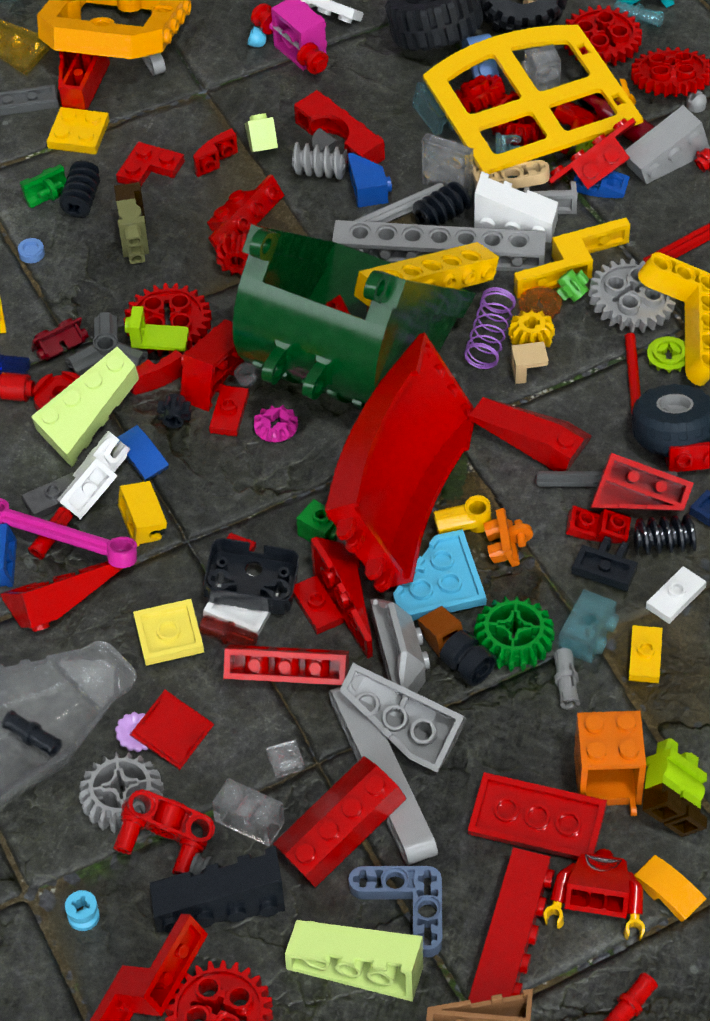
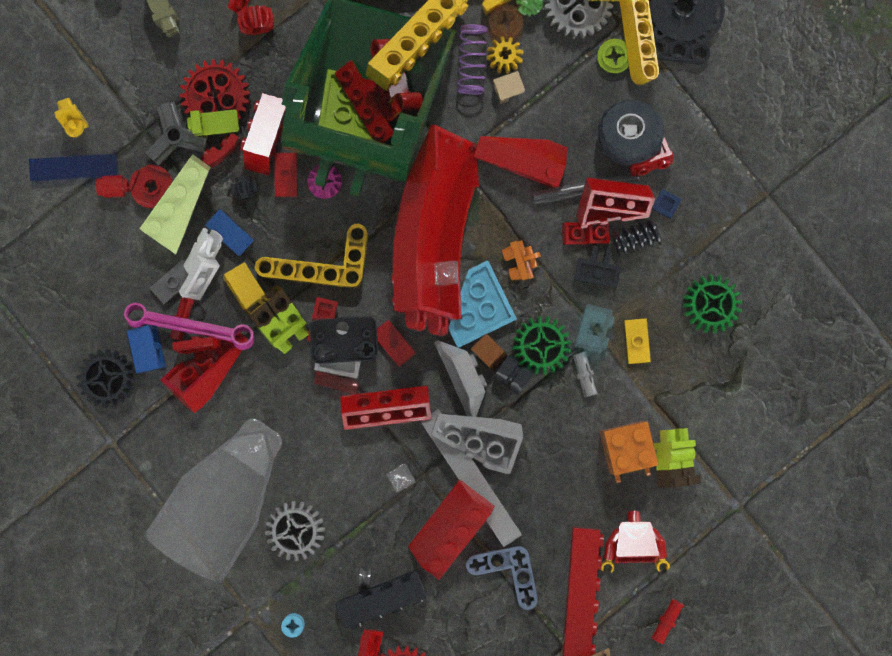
camera: 15 degrees left, 35 degrees up
(31, 250) = (83, 37): medium blue tile -> none
(31, 733) = (220, 500): black pin -> none
(49, 342) = (127, 135): dark red hinge -> none
(61, 557) = (197, 344): none -> red plate
(123, 731) = (292, 479): lavender piece -> none
(166, 819) = (334, 554): red piece -> none
(168, 632) = (292, 390): light yellow plate -> none
(172, 543) = (279, 327): none -> hips
(172, 729) = (316, 471): red piece -> none
(244, 511) = (321, 269): none -> yellow beam
(248, 812) = (386, 530): clear brick -> none
(315, 523) = (380, 275): green brick -> none
(341, 579) = (417, 339): red wedge -> none
(357, 957) = (484, 627): yellowish green wedge -> none
(405, 531) = (446, 273): none -> clear tile
(466, 516) = (482, 249): yellow piece -> none
(537, 817) = (585, 495): red plate -> none
(632, 367) = (589, 78): red bar -> none
(670, 886) = (680, 529): light orange slope -> none
(676, 594) = (651, 285): white plate -> none

